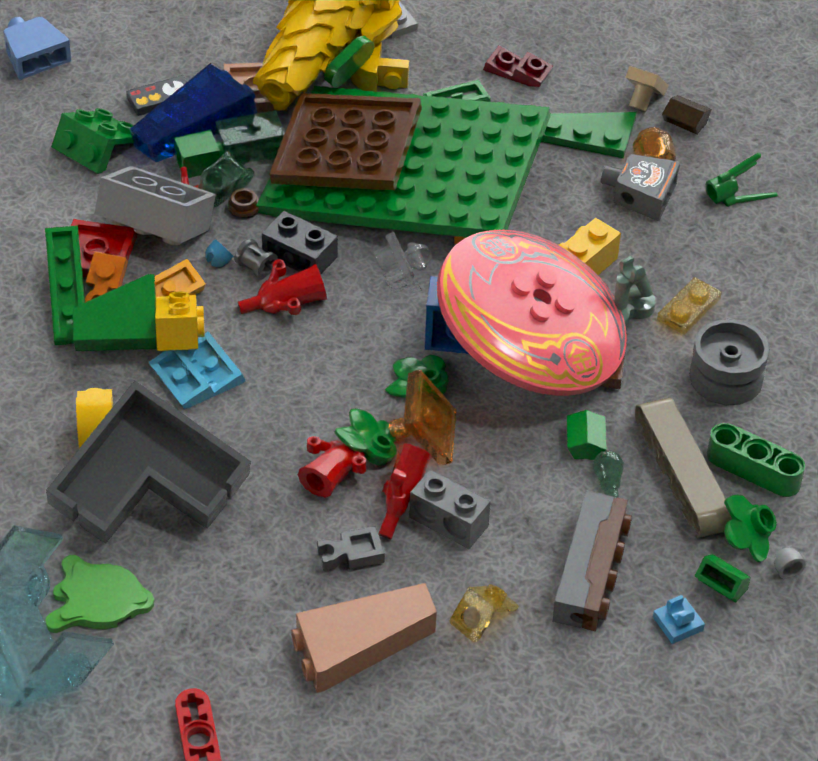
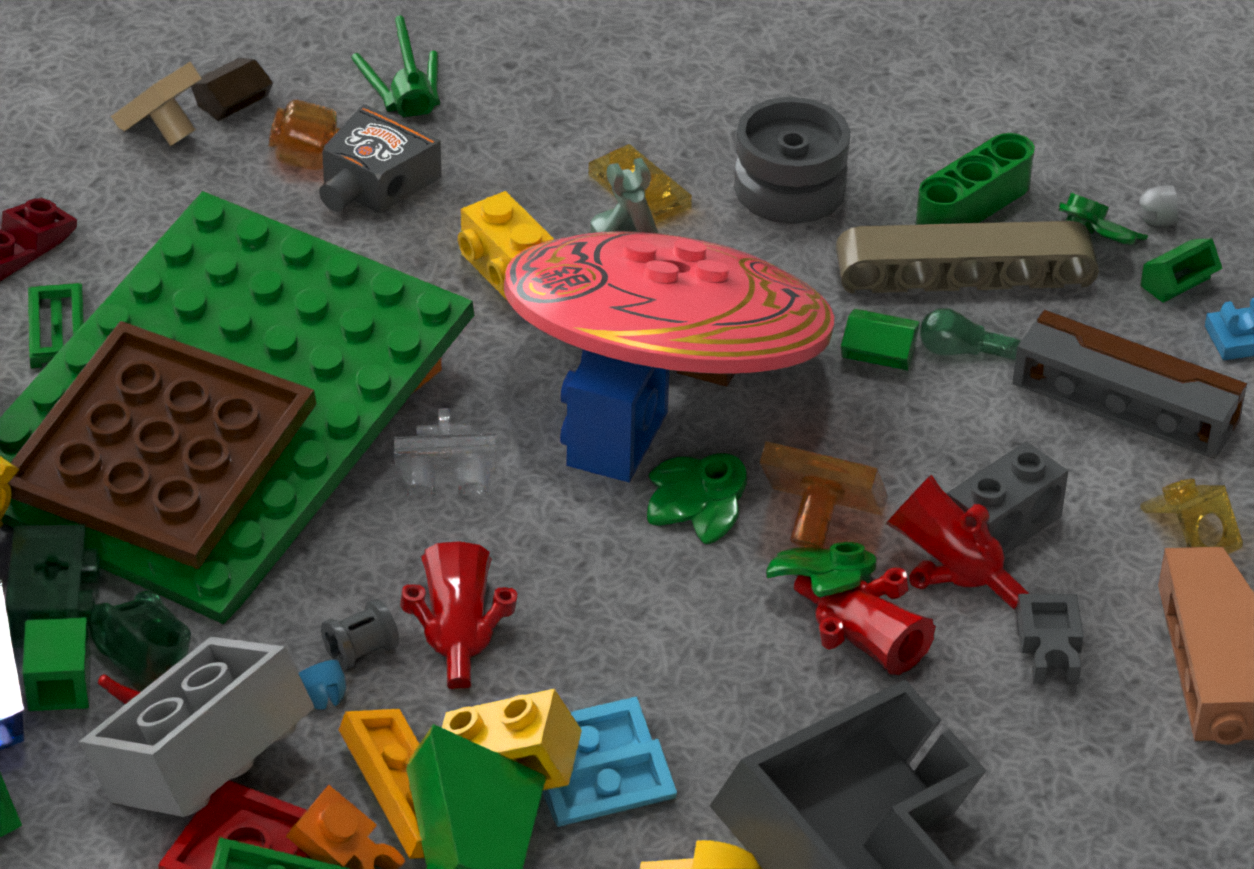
camera: 75 degrees left, 5 degrees down
(243, 203) = (206, 621): reddish brown plate -> none
(300, 243) = (352, 566): black brick -> none
(592, 132) = (224, 174): wing -> none

